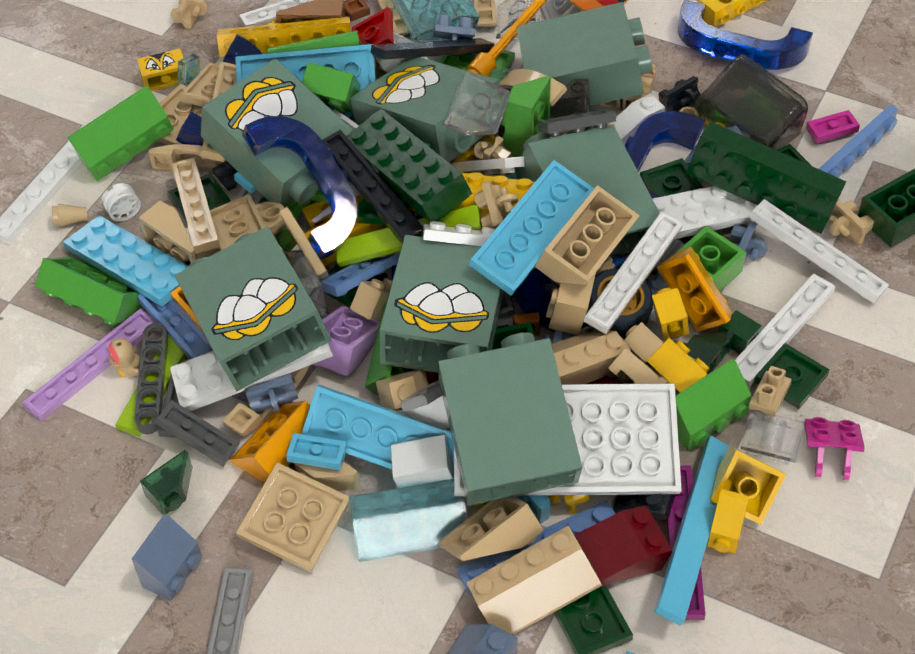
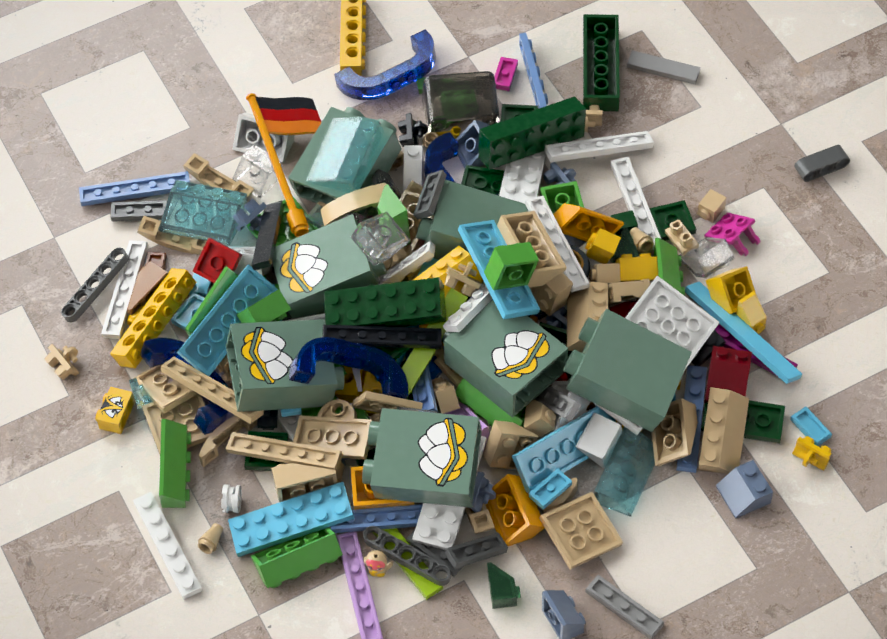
camera: 55 degrees left, 5 degrees up
(351, 375) = (504, 441): none -> tan slope
(530, 222) = (511, 265): none -> bright green brick
(577, 44) = (346, 153): none -> clear light blue slope
(729, 351) = (642, 241): none -> tan cone
(848, 401) = (711, 206): none -> tan brick

